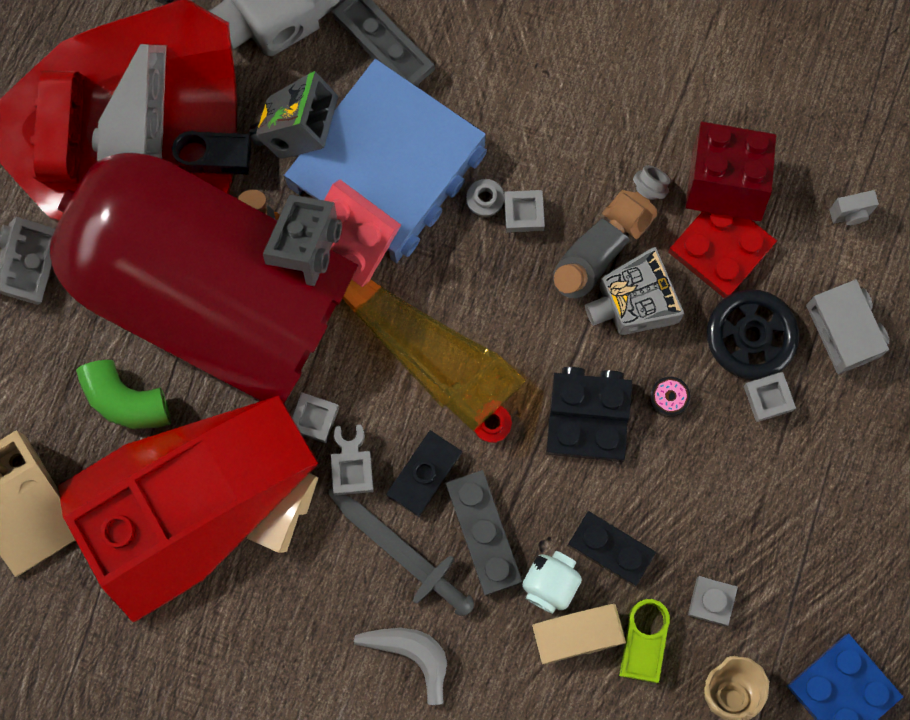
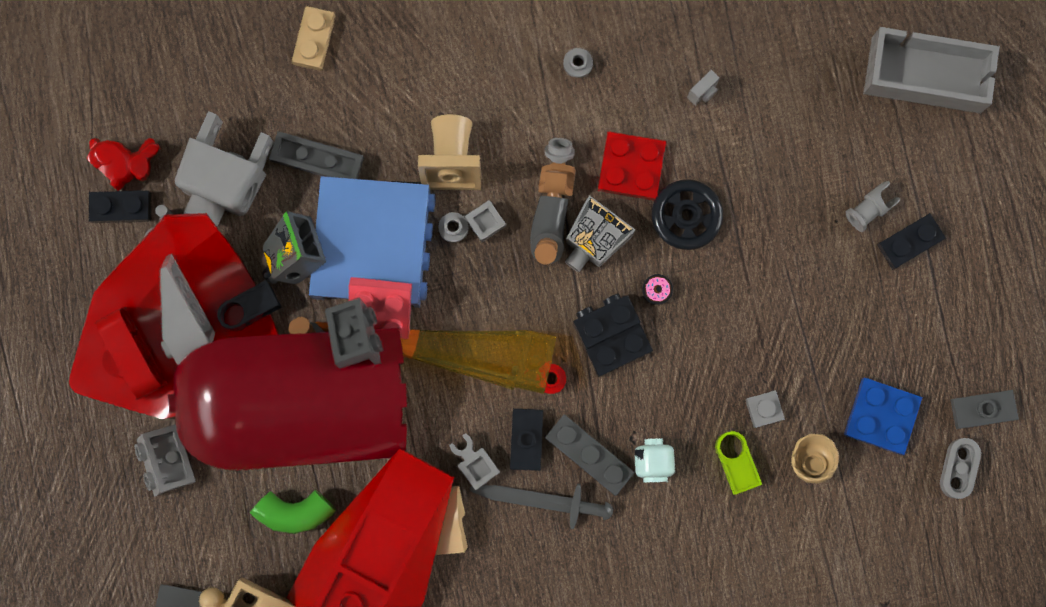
camera: 30 degrees left, 5 degrees up
(315, 417) = (430, 446): light grey plate -> none
(416, 646) = (592, 557): light grey piece -> none
(524, 128) = (450, 165): none -> tan plant
(579, 633) = (692, 484): tan slope -> none
(611, 549) = (679, 414): black plate -> none
(726, 111) = (578, 71): none -> light grey plate
(731, 171) = (609, 112): dark red brick -> none
(769, 397) = (723, 251): light grey plate -> none
(848, 326) = (747, 172): light grey brick -> none

